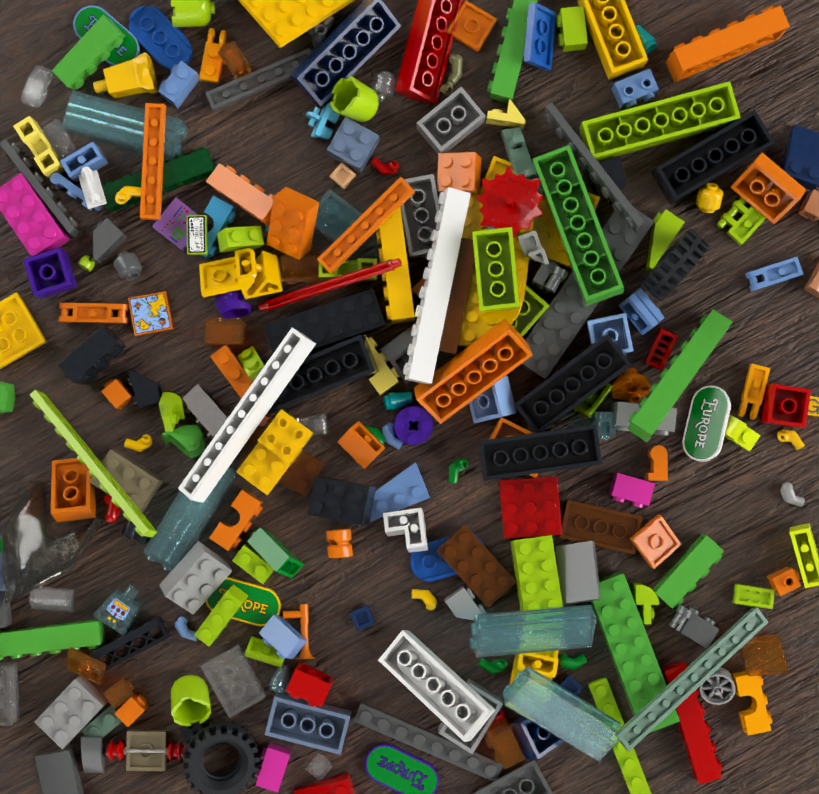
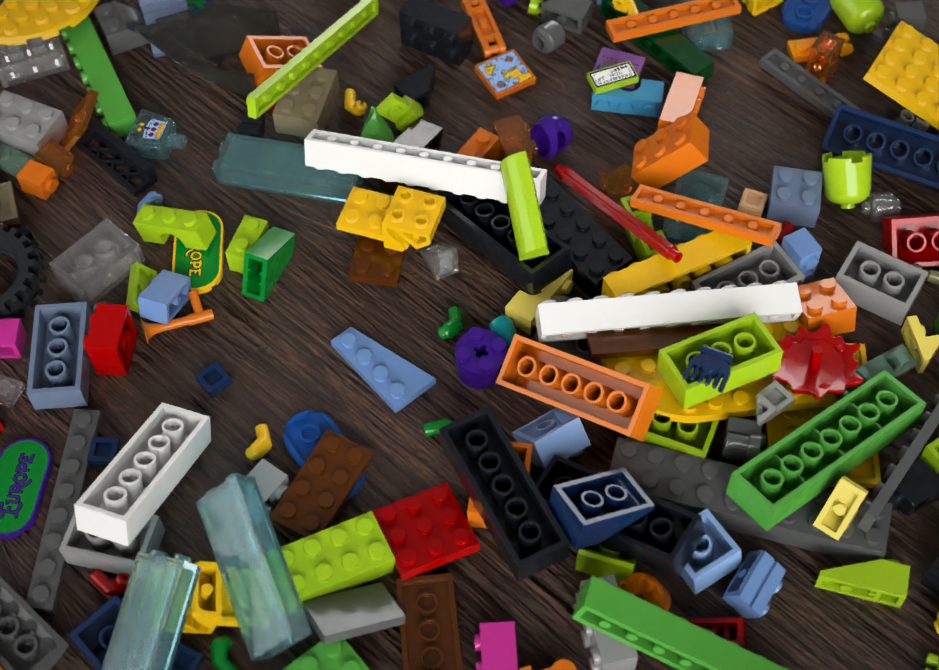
camera: 70 degrees right, 30 degrees down
(52, 599) = (149, 76): clear brick -> none
(117, 393) = (401, 65): orange brick -> none
(178, 84) = (770, 24): medium blue brick -> none
(190, 700) = (60, 220): lime cylinder -> none
(195, 578) = (212, 188): light grey brick -> none
(228, 535) = (313, 221): orange arch -> none
(240, 238) = (628, 118): lime brick -> none
(242, 272) = (588, 132): yellow piece -> none
(320, 129) = (804, 157): medium azure hips -> none
(324, 357) = (524, 206): none -> lime brick
(339, 543) = (302, 323): orange wheel -> none
(341, 501) = (356, 306): black brick -> none
(361, 444) = (434, 308): orange brick -> none
(388, 433) = (450, 349): medium blue arm -> none
(395, 707) = (103, 450): none -> dark blue plate
(411, 524) = (347, 390): white brick -> none
(413, 166) = (803, 252): none -> medium blue brick
(493, 667) = (188, 548): green arm -> none
(504, 743) = (81, 594): clear orange brick -> none
(508, 280) = (712, 364): none -> dark blue piece
(574, 394) = (598, 506): none -> dark blue slope
(605, 424) = (569, 573): clear light blue brick -> none
(623, 238) = (840, 508): none -> light yellow slope
(675, 264) = (840, 588): black tyre -> none

